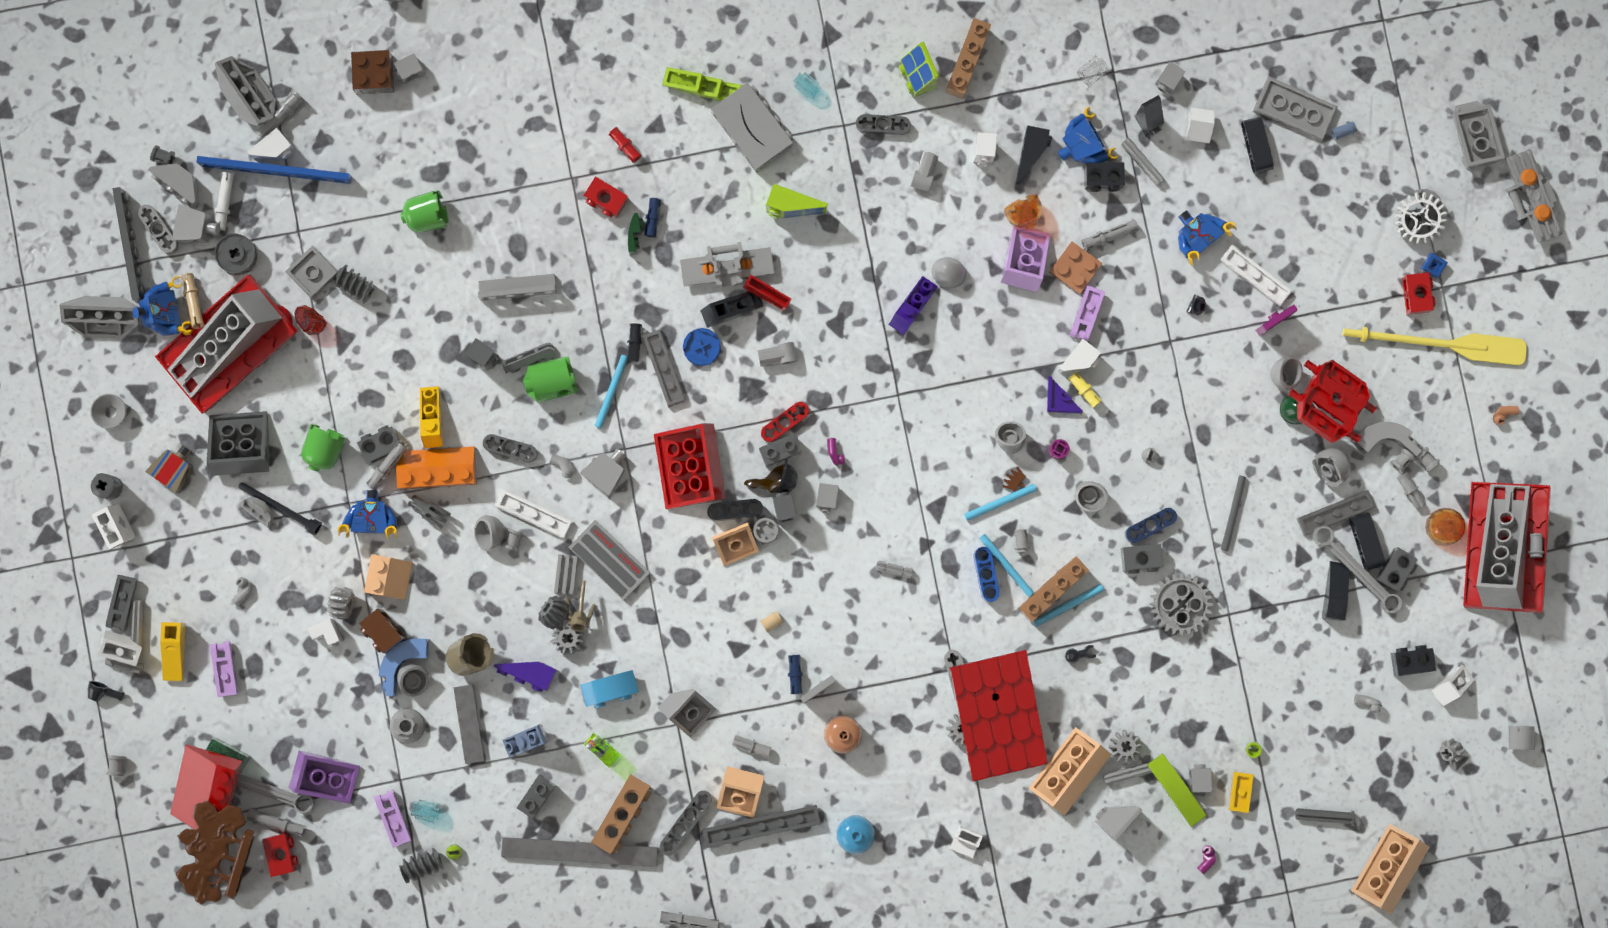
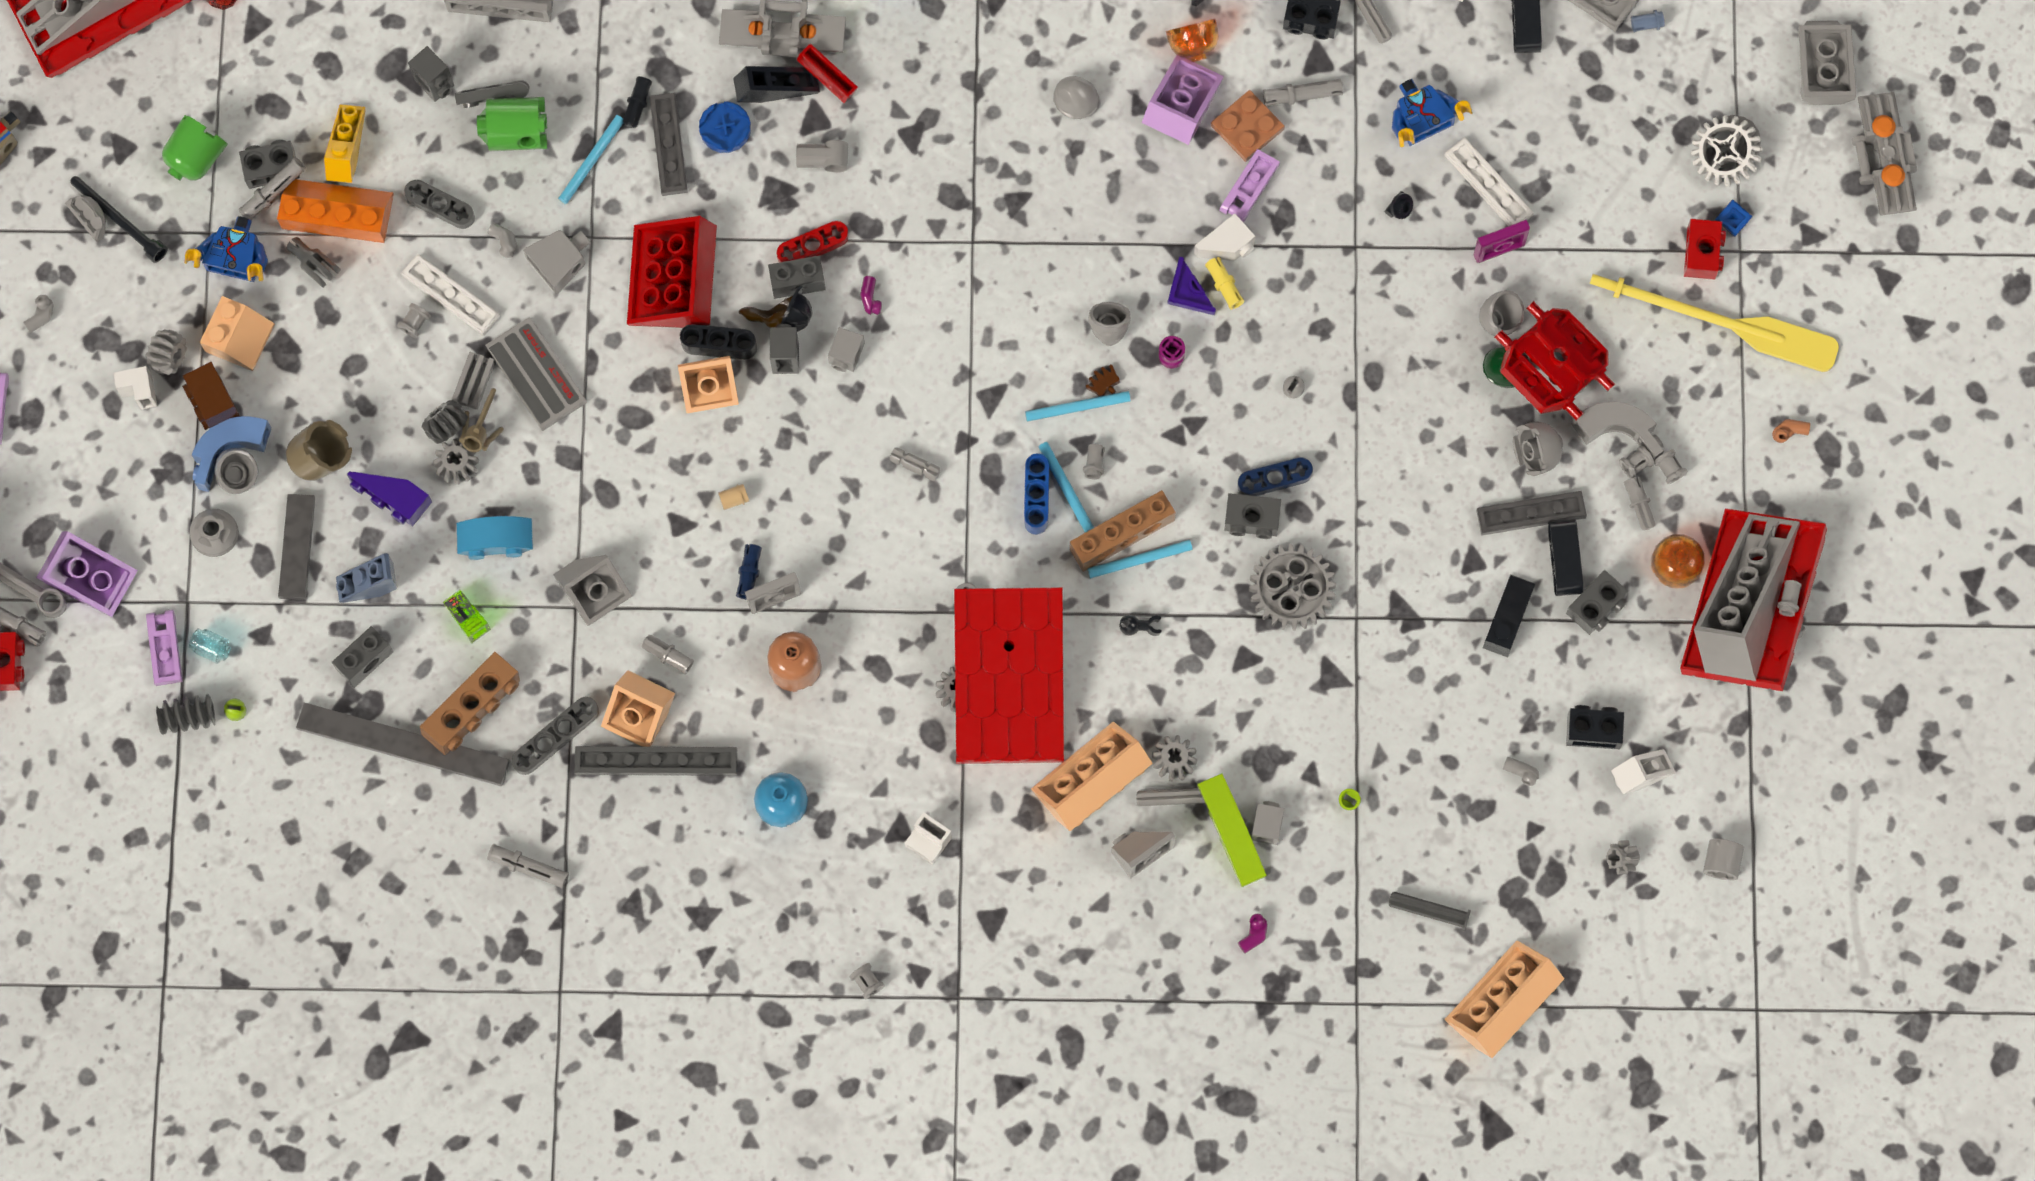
camera: 20 degrees right, 10 degrees down
(238, 443) = (83, 125): dark grey slope -> none
(489, 532) = (385, 302): light grey hat -> none
(765, 530) = (753, 376): light grey piece -> none
(913, 305) = (1017, 129): dark purple slope -> none
(1091, 496) = (1201, 419): light grey hat -> none
(1233, 513) = (1391, 484): dark grey bar -> none
(1240, 792) = (1320, 852): yellow plate -> none
(1357, 569) = (1543, 591): light grey piece -> none

